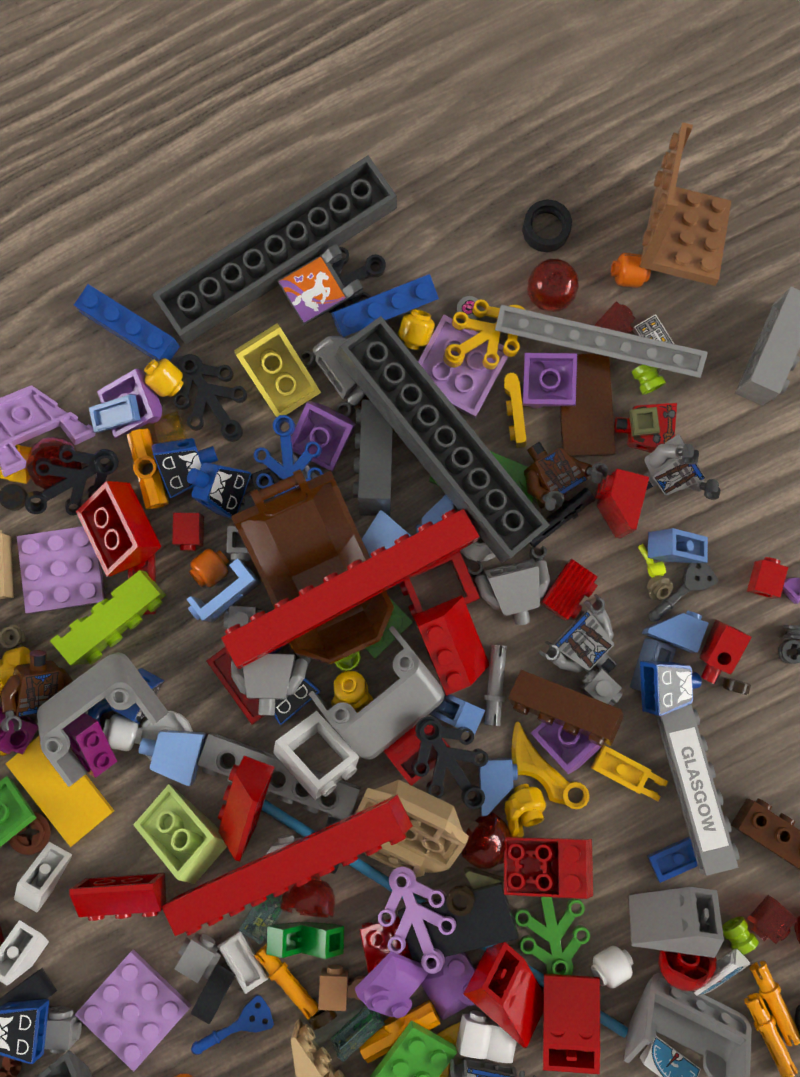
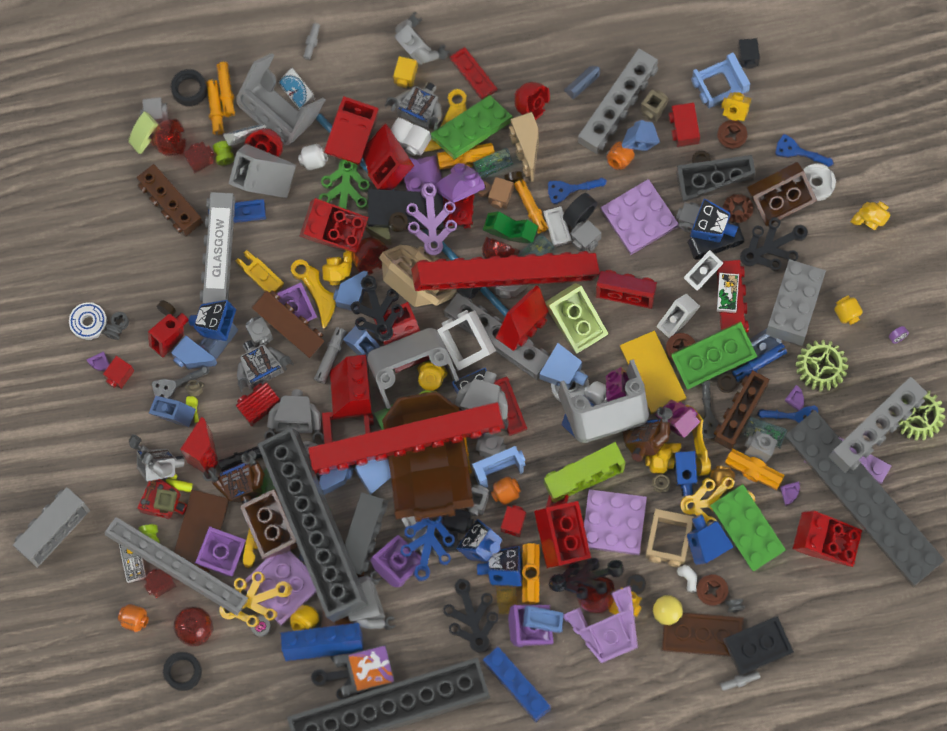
camera: 160 degrees left, 10 degrees down
(163, 377) = (499, 635): yellow head -> none
(277, 371) = (416, 620): light yellow slope -> none
(500, 424) = (269, 525): none -> reddish brown slope
(633, 454) = (179, 485): none -> neon yellow arm
(684, 226) = (83, 634): medium nougat bracket -> none

